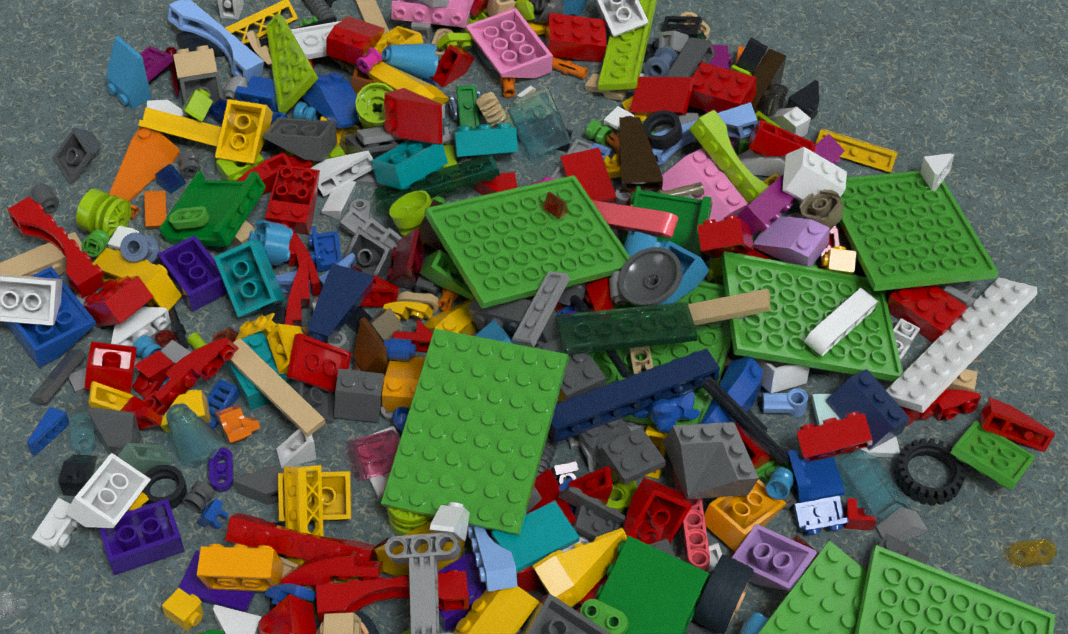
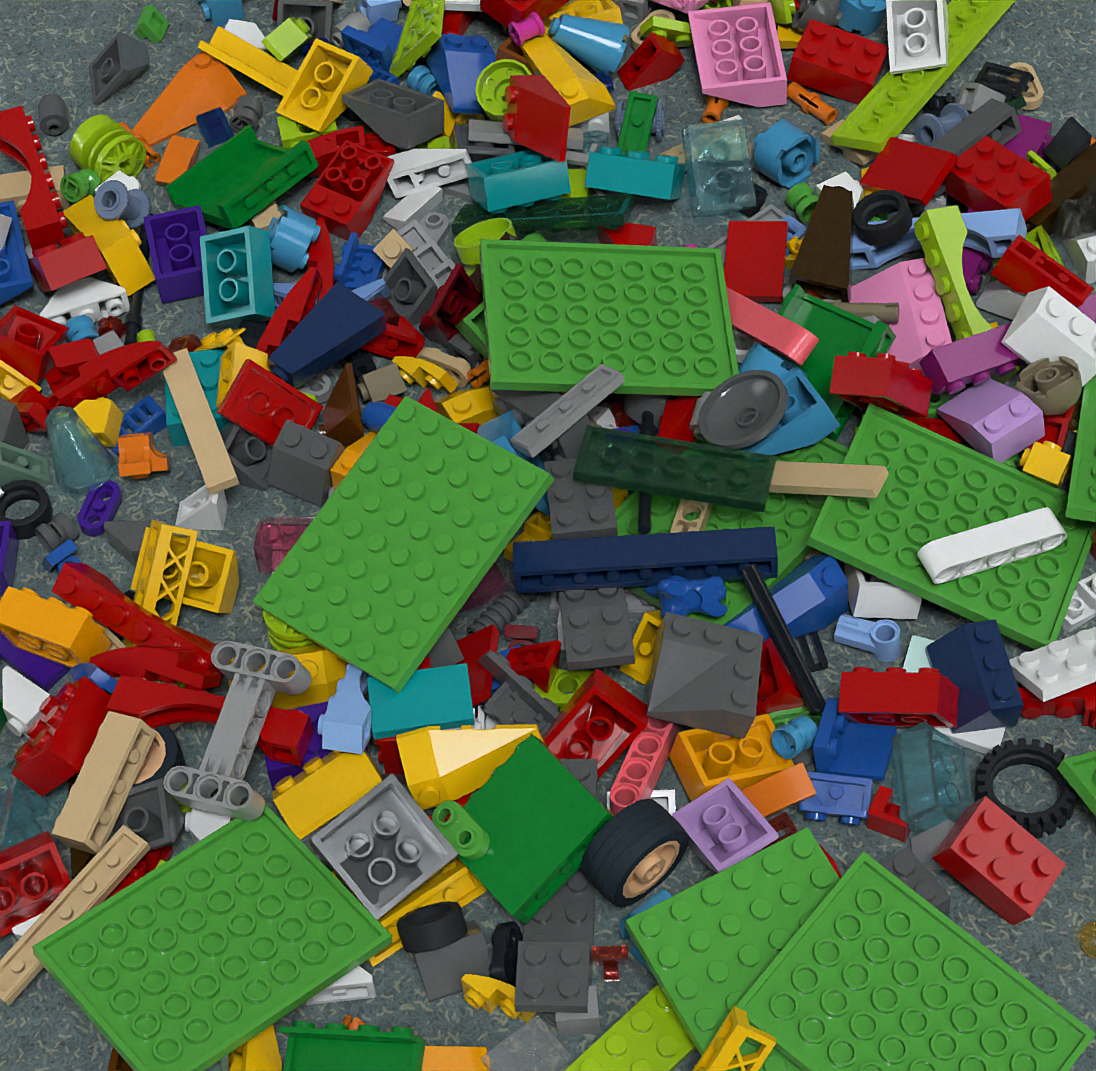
camera: 30 degrees right, 0 degrees up
(87, 118) = (151, 24): none -> bright green tile
(189, 217) = (207, 182): bright green plate -> none
(345, 231) = (392, 247): none -> tan plate
(451, 520) = (312, 645): white slope -> none
(491, 108) = (663, 132): tan gear -> none
(555, 206) = (662, 282): clear red slope -> none
(574, 103) = (785, 153): none -> dark azure brick
(788, 519) = (780, 790): none -> orange slope
(945, 523) = (999, 861): none -> red brick

